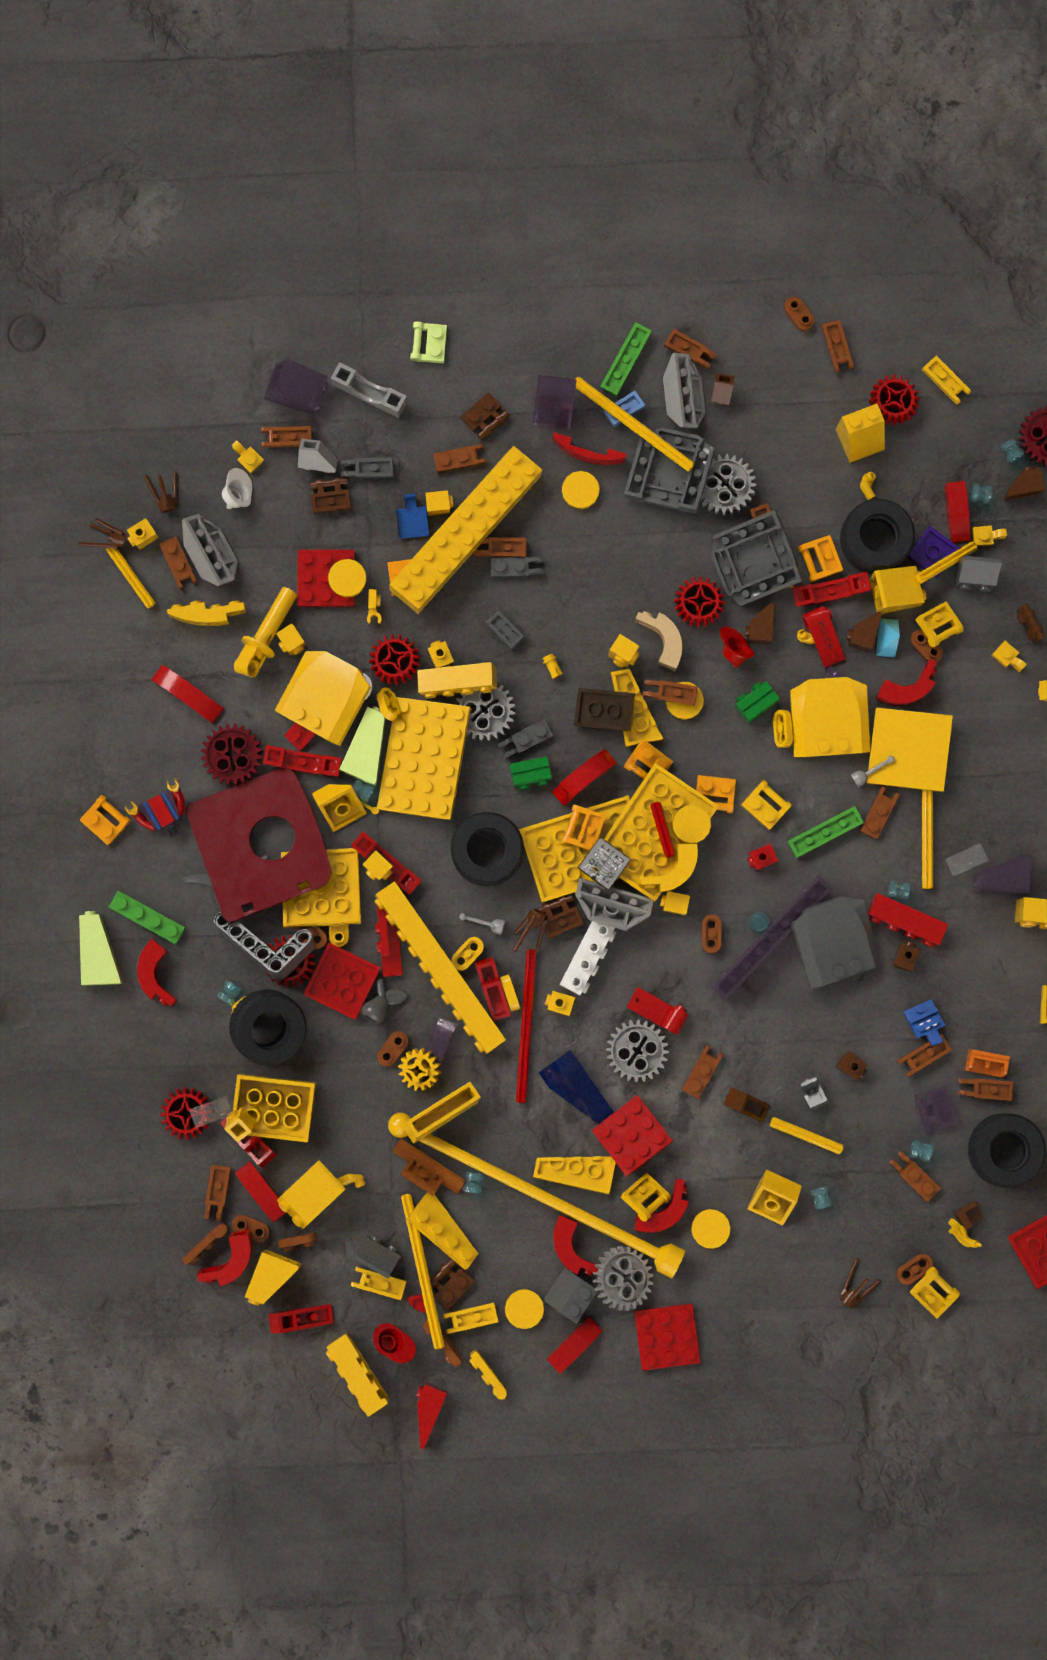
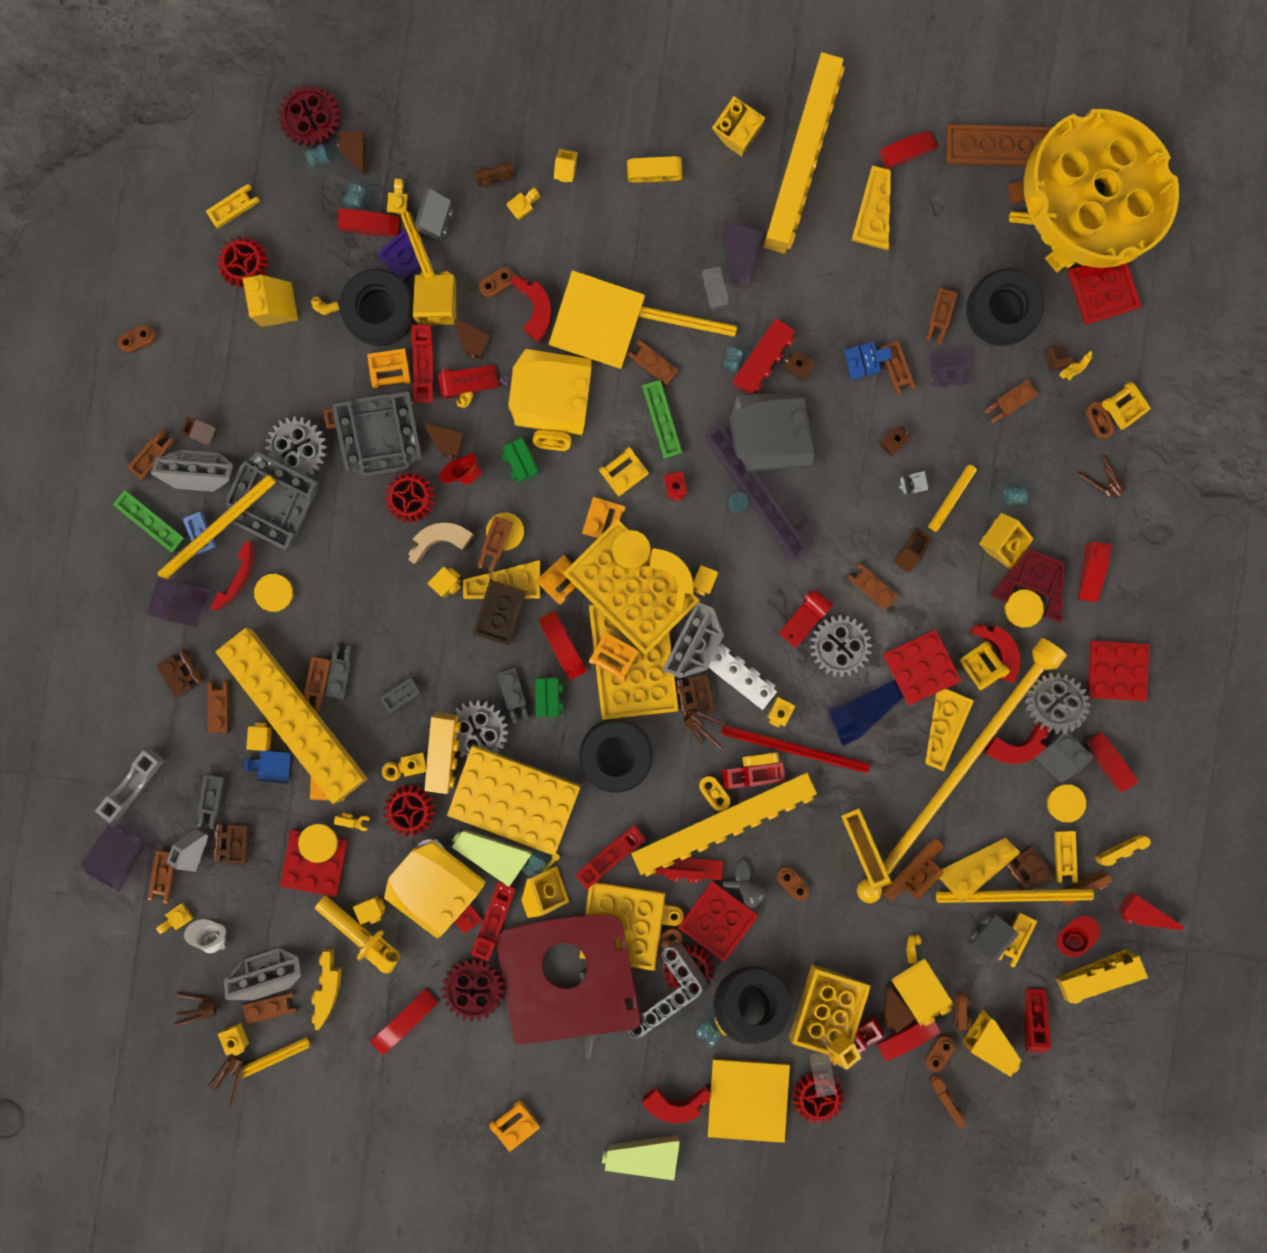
camera: 75 degrees left, 5 degrees up
(147, 917) = (618, 1101): bright green plate -> none
(161, 811) = (516, 1070): torso -> none
(170, 1045) = (748, 1100): none -> yellow tile
(217, 1190) = (897, 1080): dark orange hinge -> none
(241, 1251) = (960, 1068): red arch -> none
(285, 1174) = (895, 1011): none -> reddish brown slope
(377, 867) = (613, 866): yellow brick -> none
(388, 703) = (452, 825): yellow beam -> none
(417, 1302) = (1040, 906): red tile -> none
(425, 1063) = (818, 861): yellow gear -> none
(429, 629) = (385, 771): none -> yellow plate
(435, 342) = (95, 709): yellowish green plate -> none
(441, 1038) = (793, 836): clear purple slope -> none
(473, 1187) = (937, 830): clear light blue wheel -> none
(497, 925) = (692, 759): light grey hinge -> none
(552, 665) = (444, 655): yellow pin -> none
(604, 863) = (653, 643): light grey tile -> none
(662, 829) = (628, 579): red axle -> none
(711, 934) = (740, 551): dark orange plate -> none
(747, 1235) = (1037, 574): none -> dark red wing
(761, 1291) = (1094, 569): none -> red slope
(837, 344) = (175, 307): dark orange hinge -> none
(860, 777) = (614, 374): light grey hinge -> none
(887, 638) = (481, 318): medium azure slope -> none
(920, 1150) = (988, 390): clear light blue wheel -> none
(937, 618) = (471, 265): yellow plate -> none
(987, 1063) = (916, 308): orange hinge -> none

